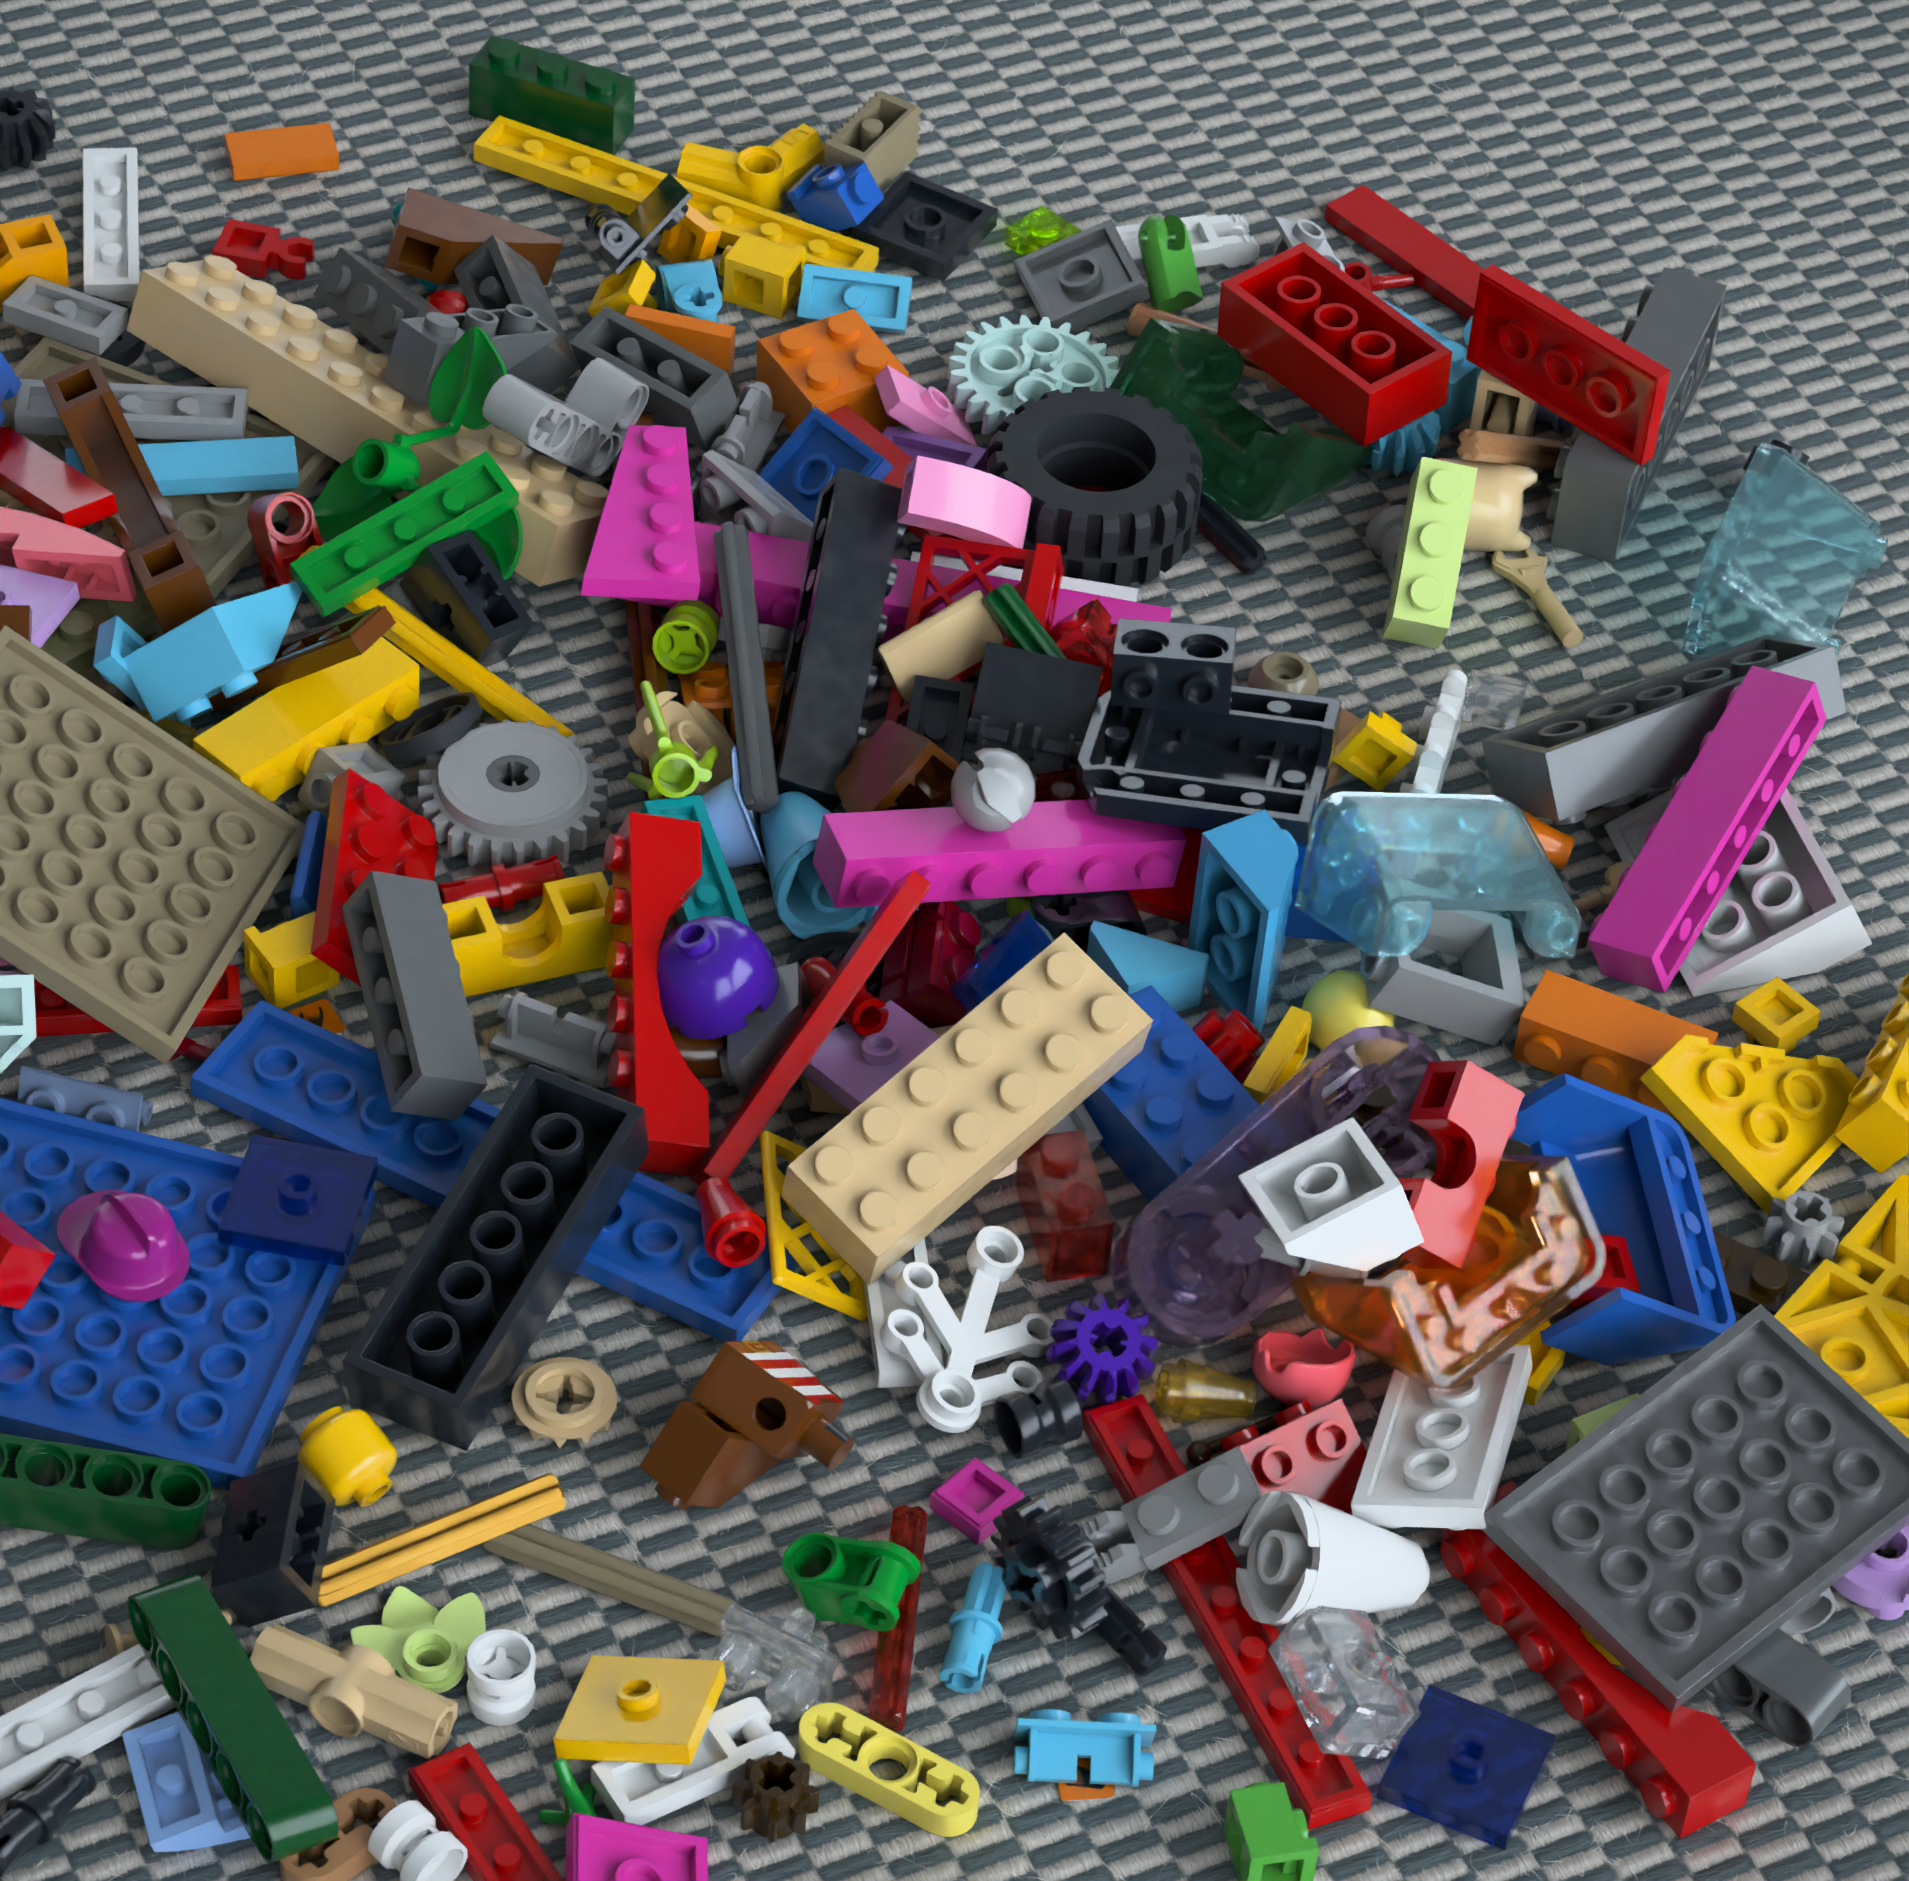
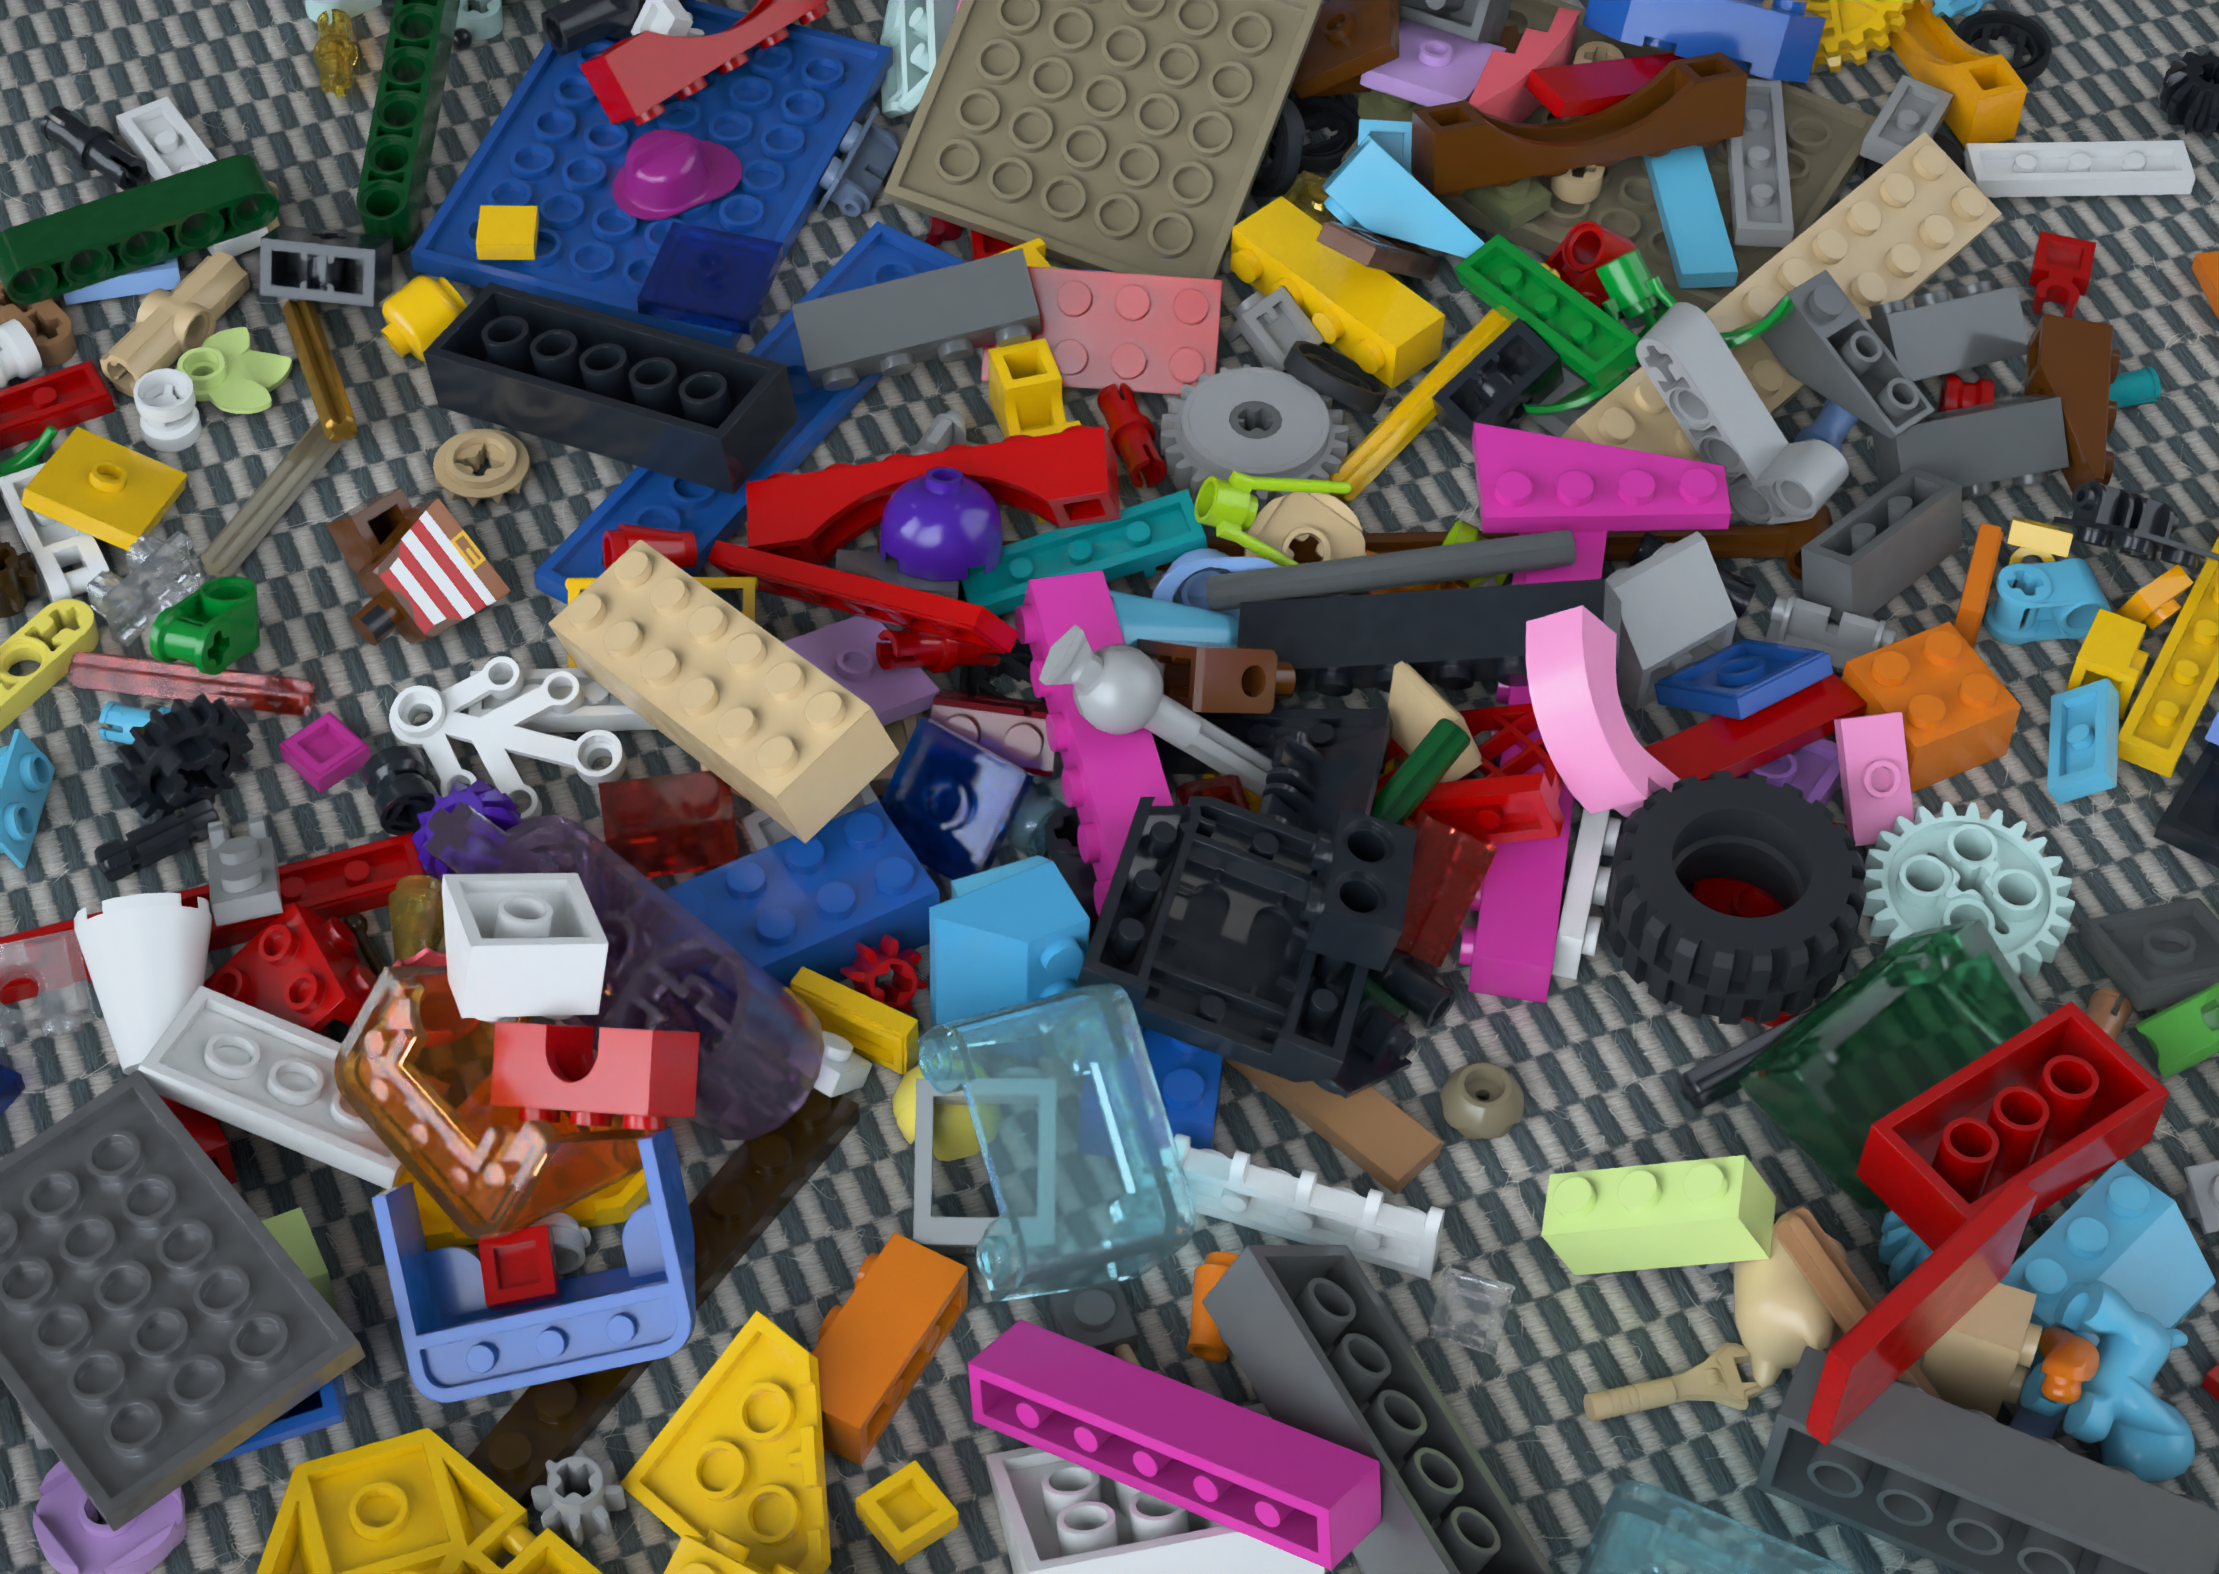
camera: 95 degrees right, 5 degrees up
(223, 1379) = (507, 232): none -> yellow tile
(1375, 750) = (1345, 1153): yellow tile -> none

